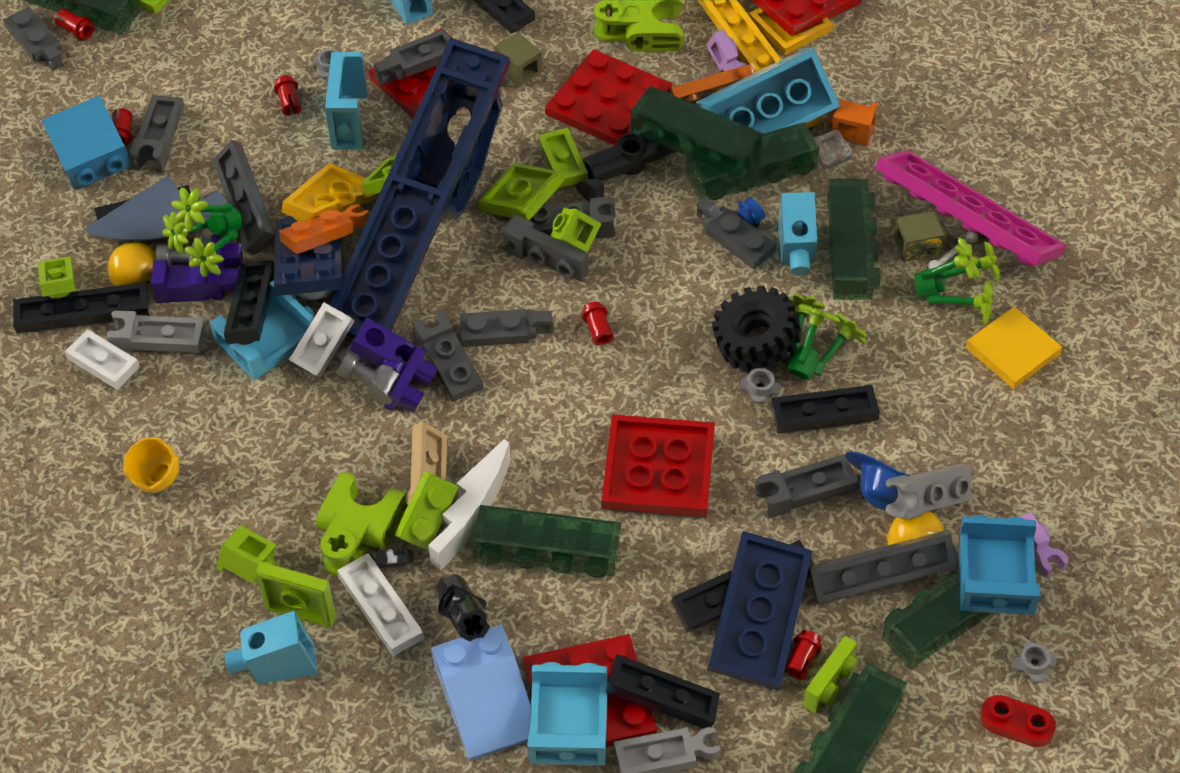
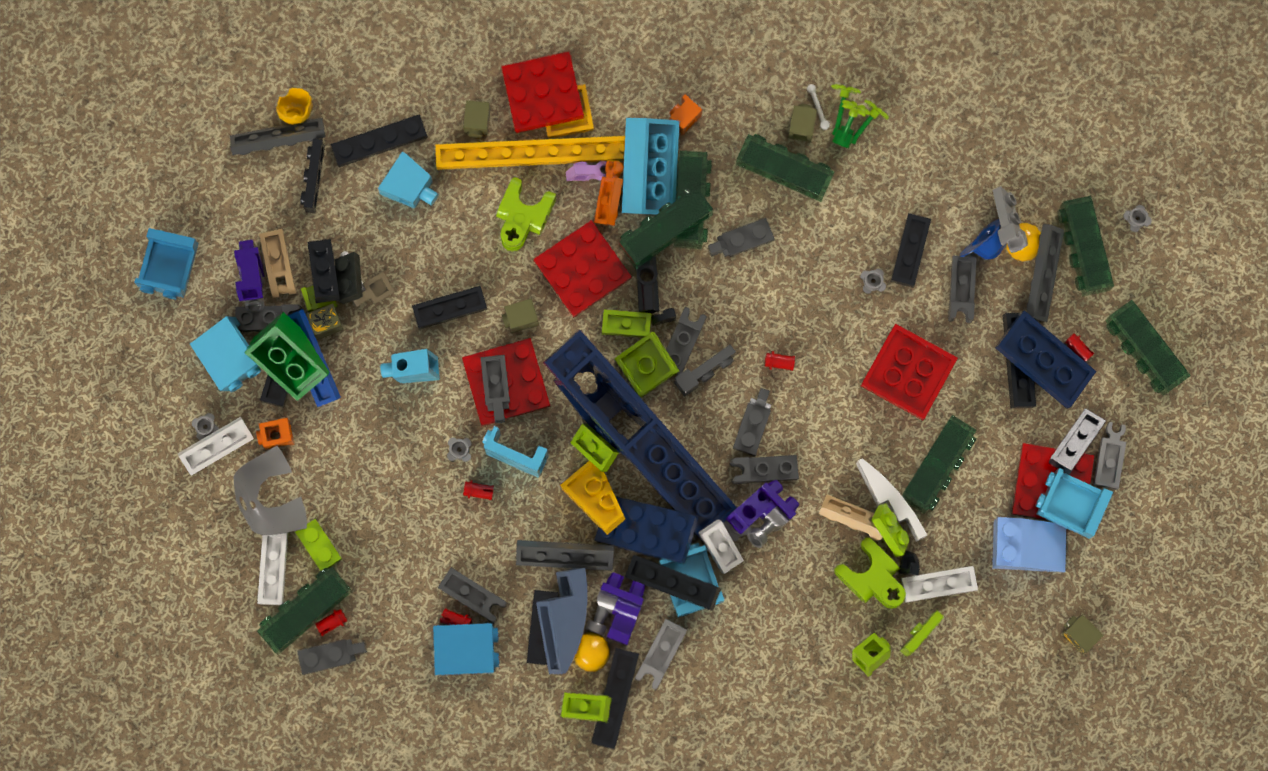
camera: 70 degrees left, 25 degrees up
(102, 359) = (667, 697): white plate -> none
(151, 465) = (776, 692): yellow hair -> none
(223, 221) = (599, 579): lime plant -> none
(274, 650) = (953, 651): medium azure torso -> none
(323, 228) = (637, 512): orange plate -> none
(462, 607) = (977, 536): black piece -> none
(569, 225) = (703, 345): lime brick -> none
(750, 312) = (837, 282): black tyre -> none
(751, 211) = (731, 221): blue plate -> none
(797, 231) = (763, 199): medium azure torso -> none
(804, 360) = (870, 244): plant -> none
(824, 684) = (1107, 346): lime plate -> none
(833, 149) = (700, 141): clear plate -> none
(971, 207) = (797, 79): dark pink plate -> none
(998, 565) = (1083, 209): dark azure panel -> none
(1013, 347) = (911, 110): yellow tile -> none
(1017, 722) = (1170, 246): red plate -> none
(1044, 553) = (1060, 174): lavender plate -> none

